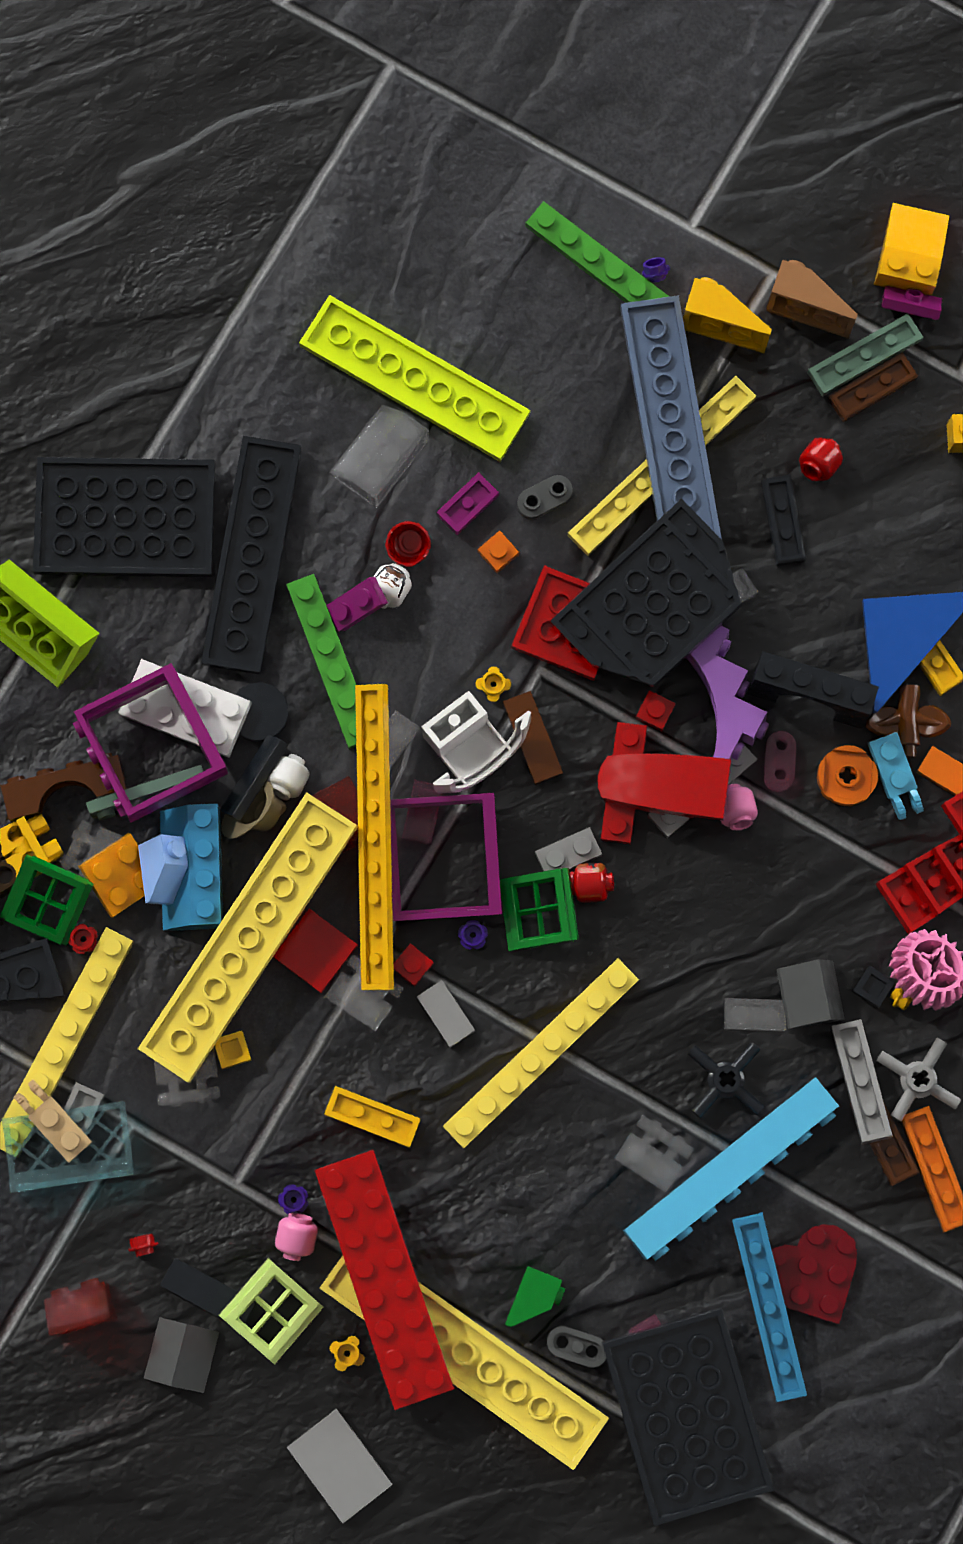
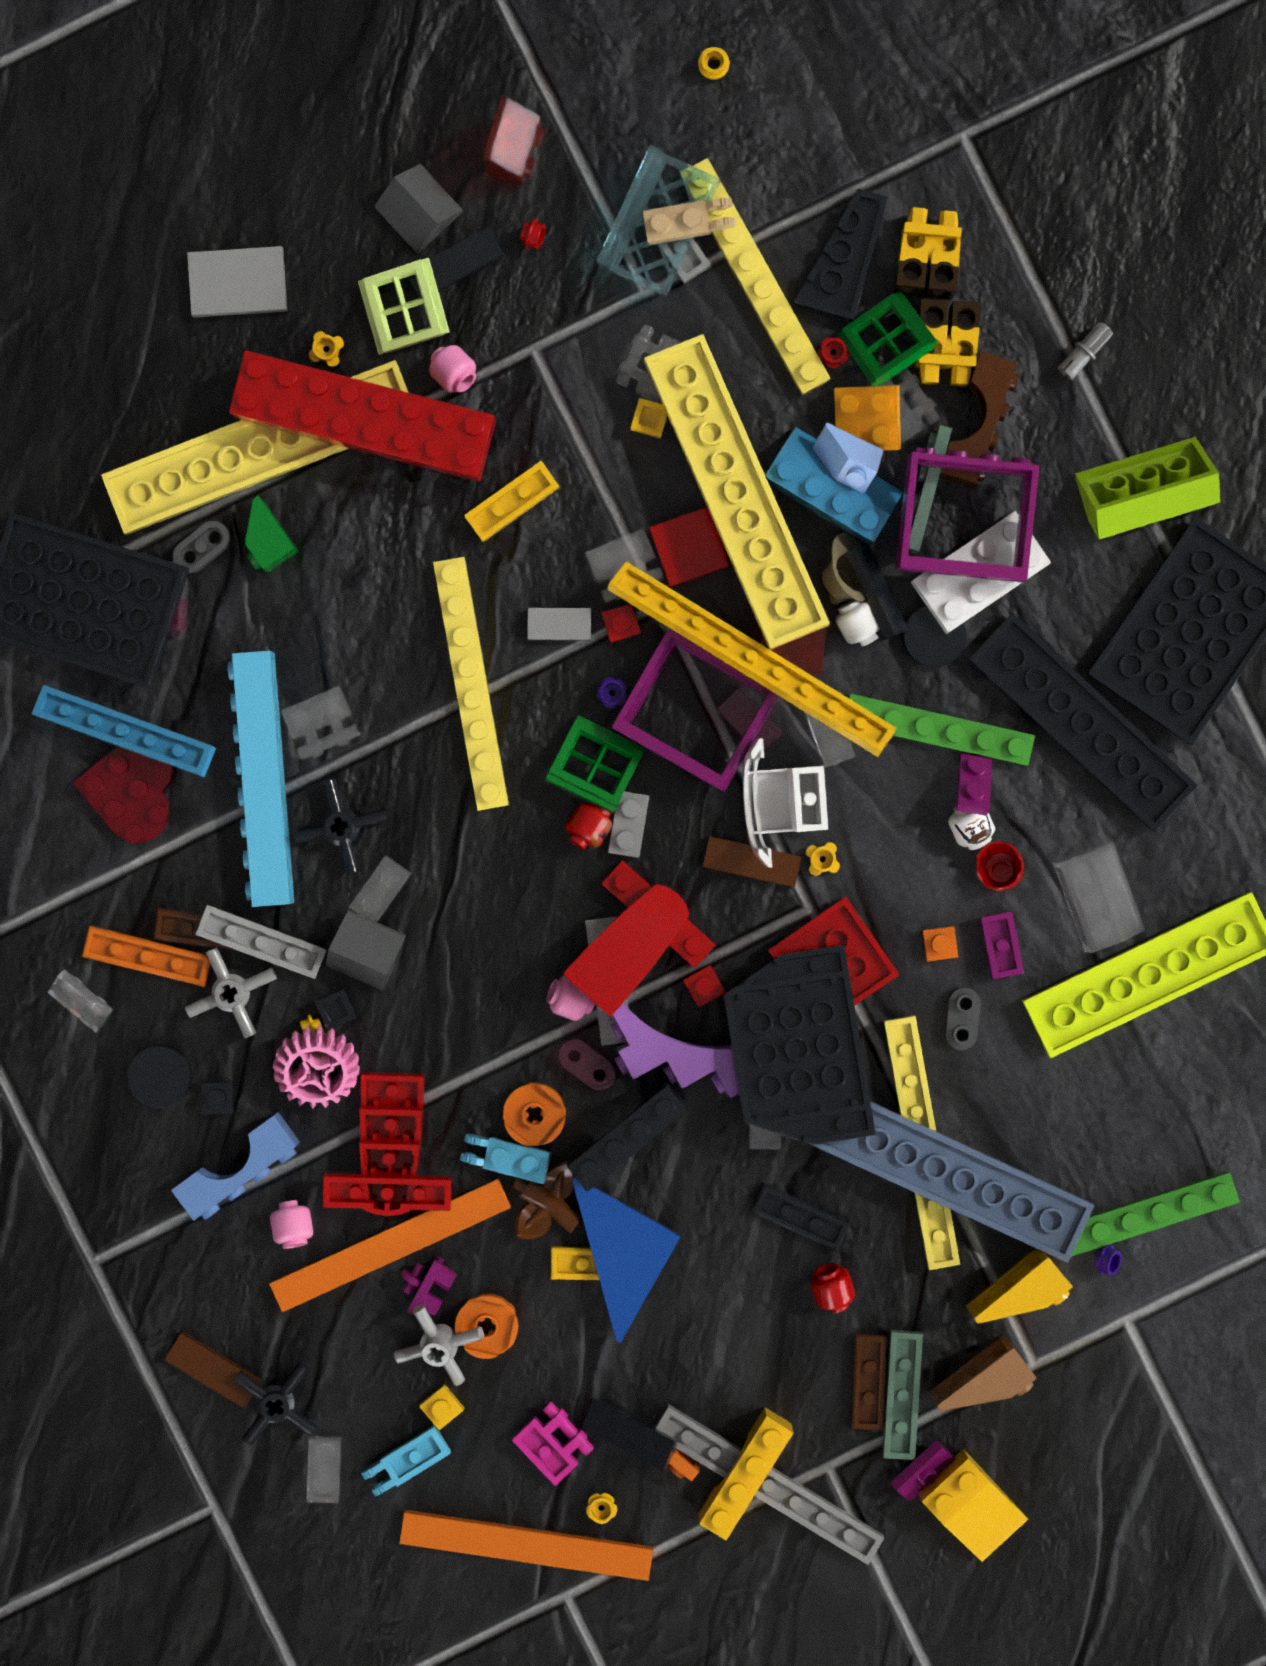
camera: 125 degrees right, 10 degrees up
(293, 1191) = (490, 380): dark purple plate -> none

